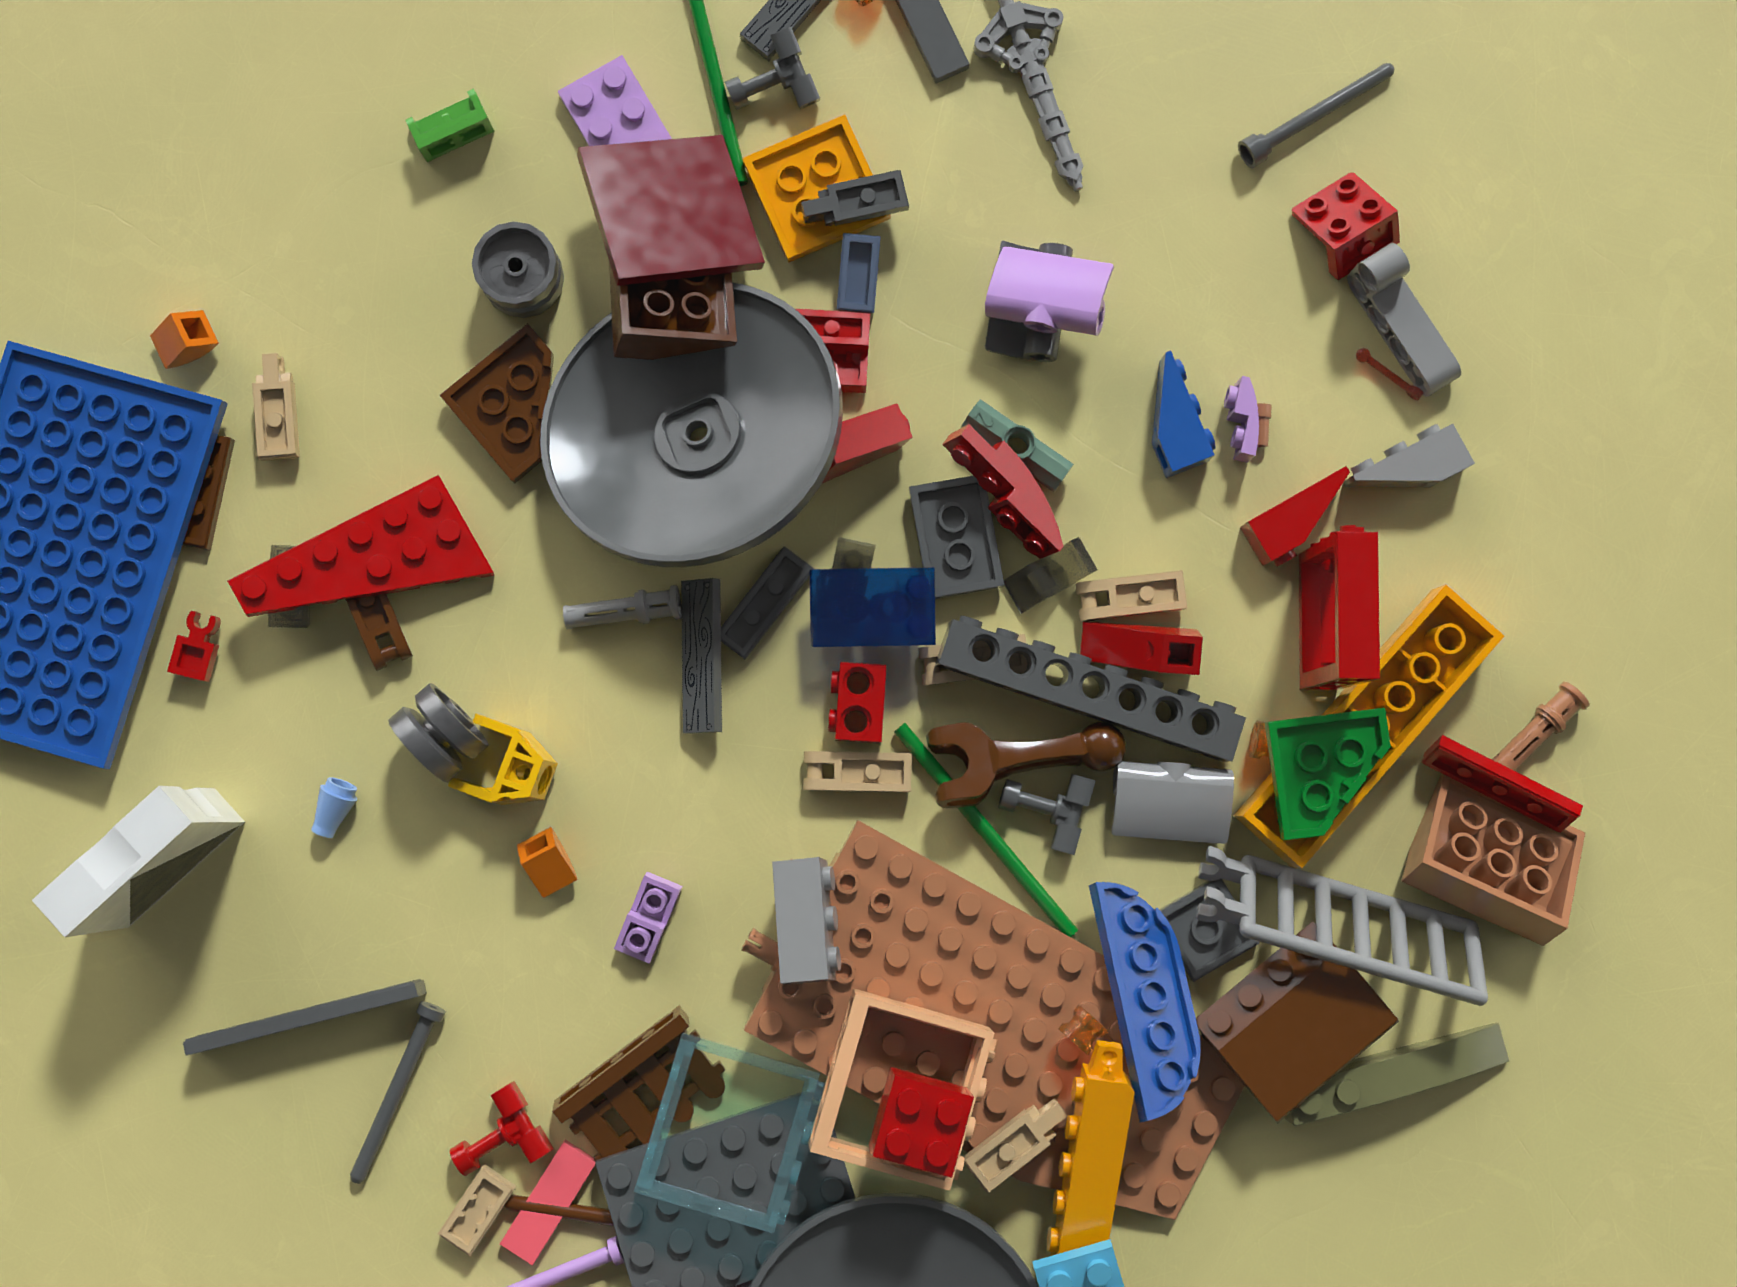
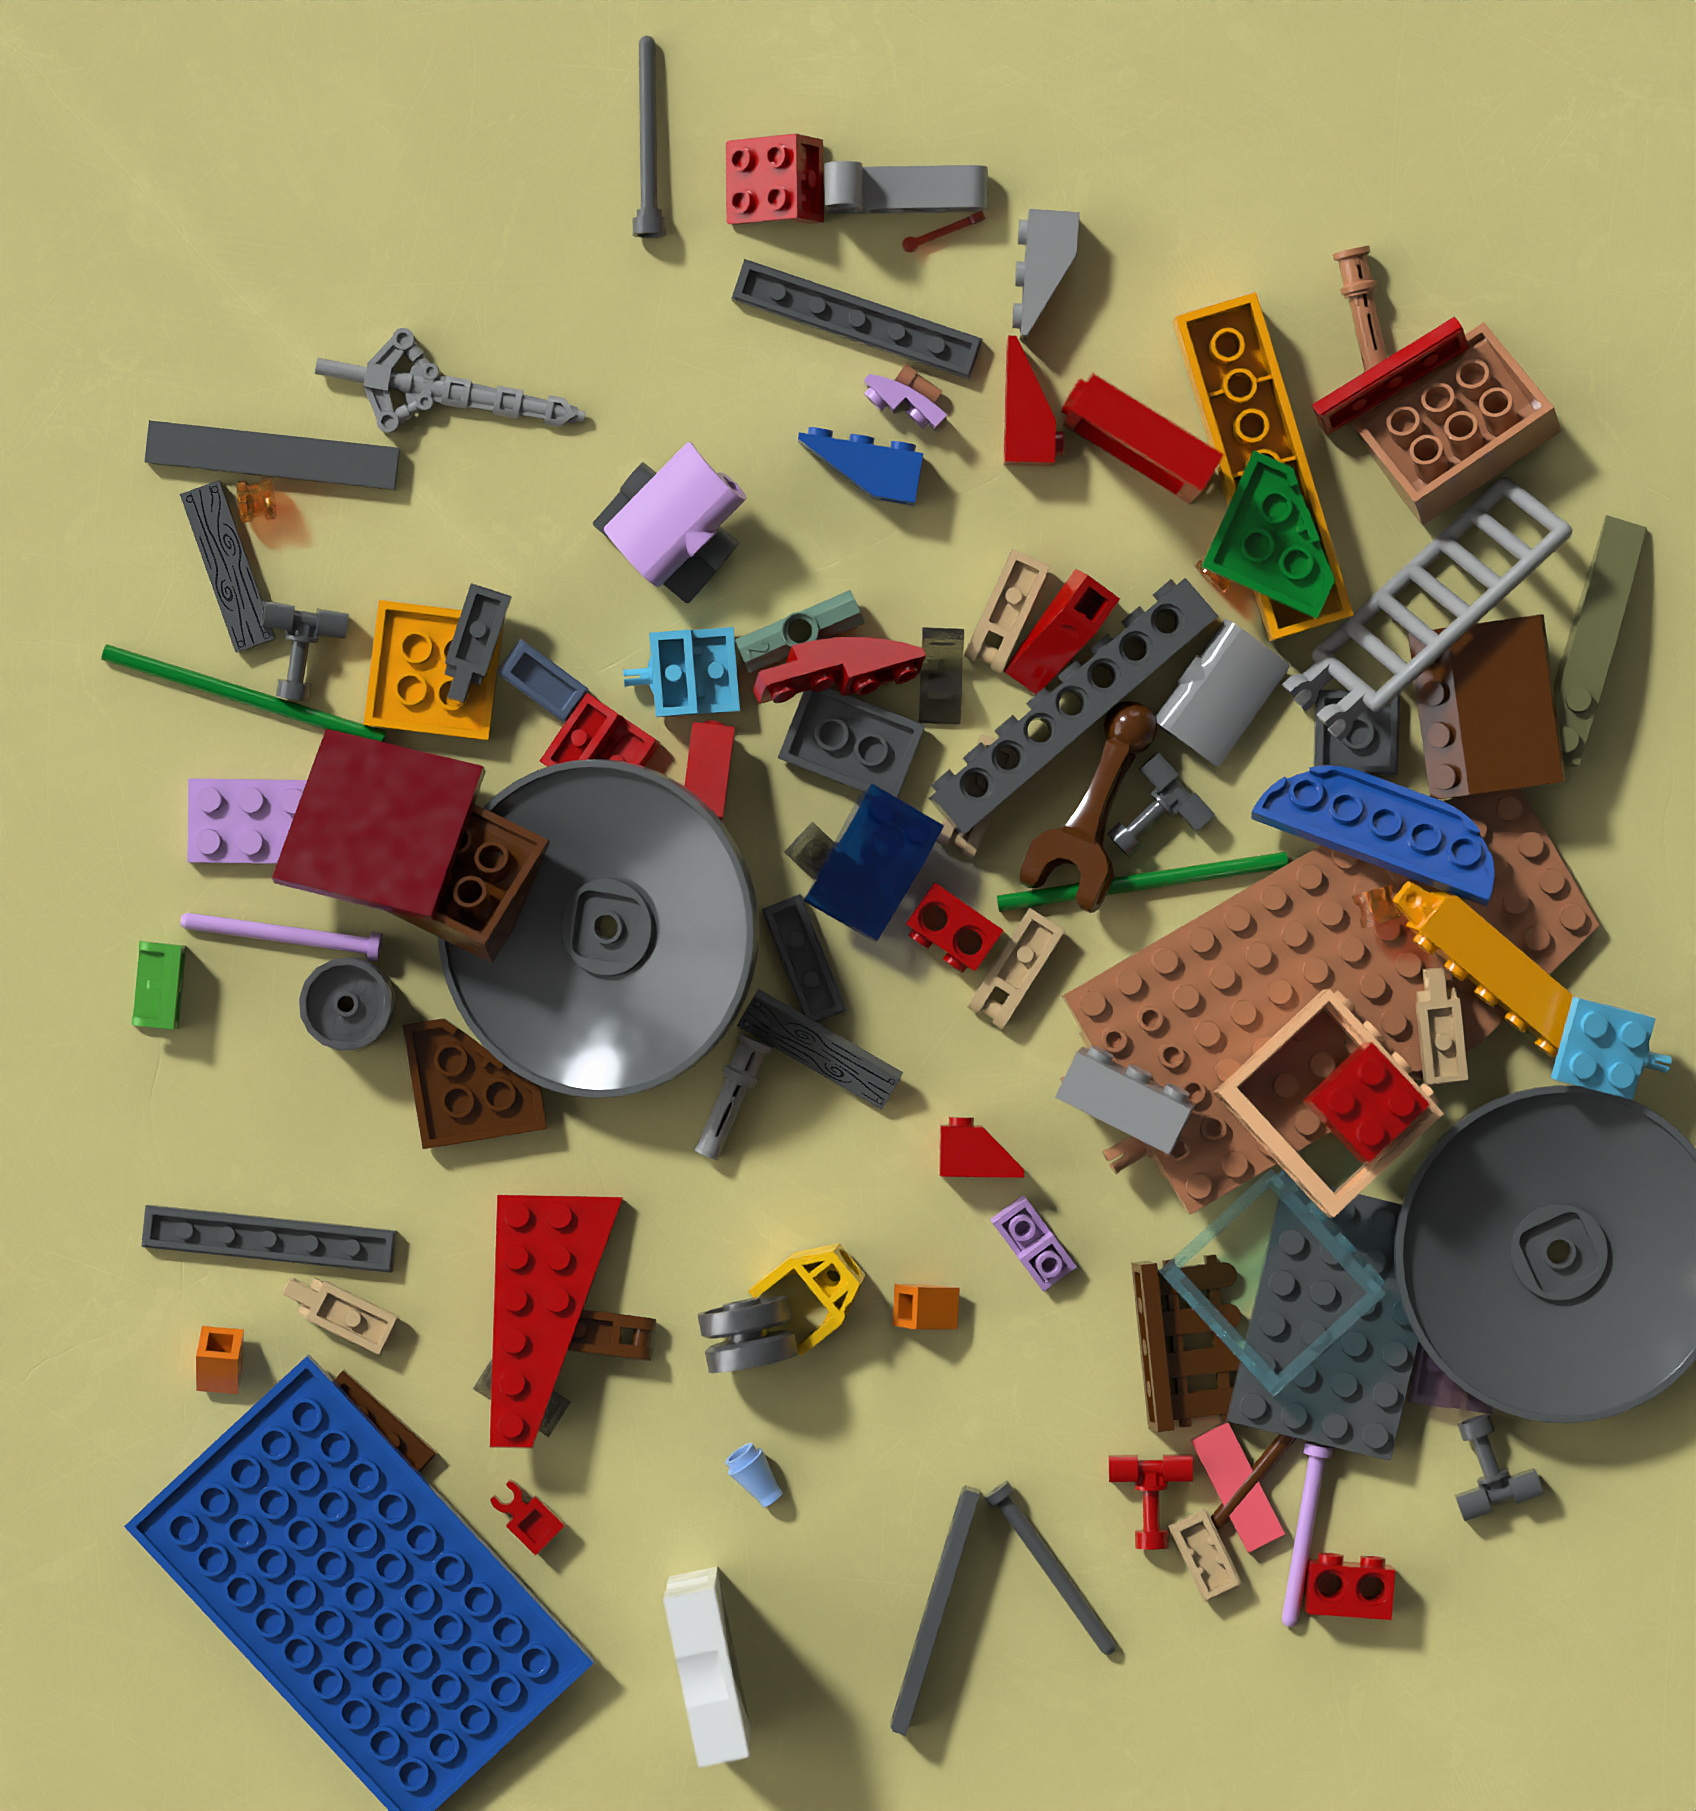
camera: 55 degrees left, 5 degrees up
(303, 323) = (269, 1238): none -> dark grey tile
(576, 266) = (367, 945): none -> lavender bar
(691, 826) = (973, 1152): none -> red slope
(934, 381) = (690, 672): none -> medium azure plate
(1281, 349) = (856, 319): none -> dark grey tile

